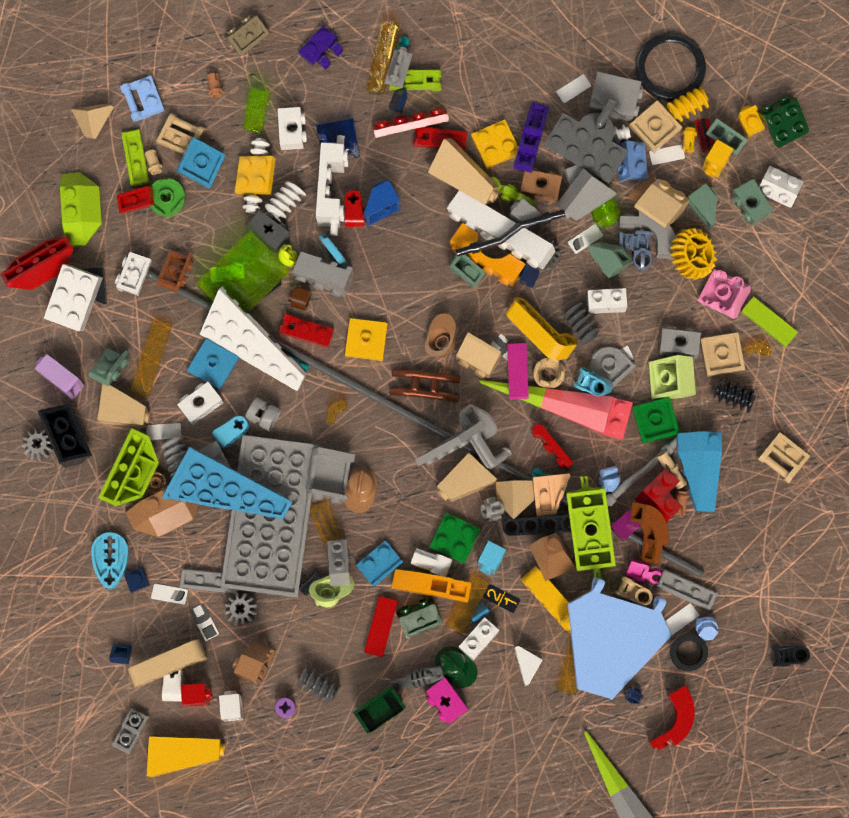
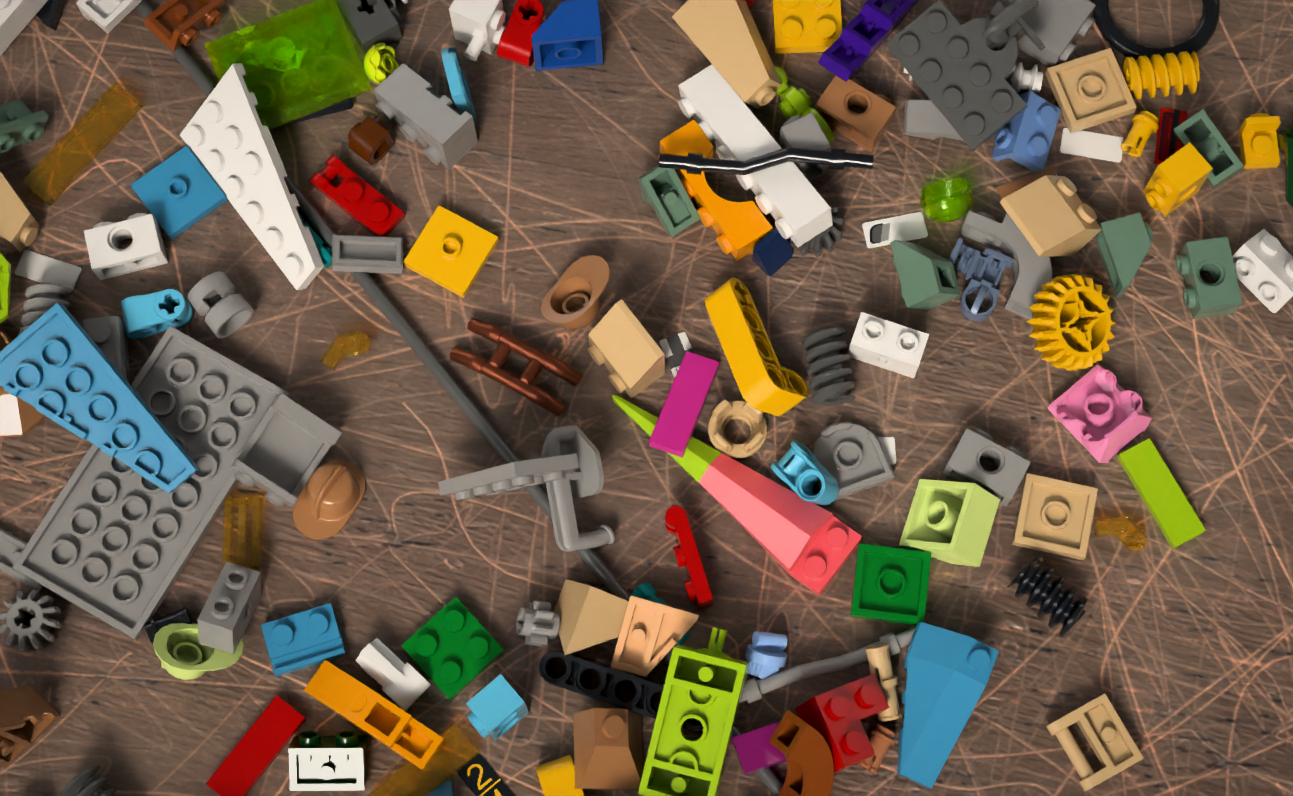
camera: 20 degrees right, 5 degrees down
(325, 358) = (367, 254): none -> light grey tile
(465, 479) = (513, 553): tan slope -> none
(584, 195) = (921, 155): light grey slope -> none

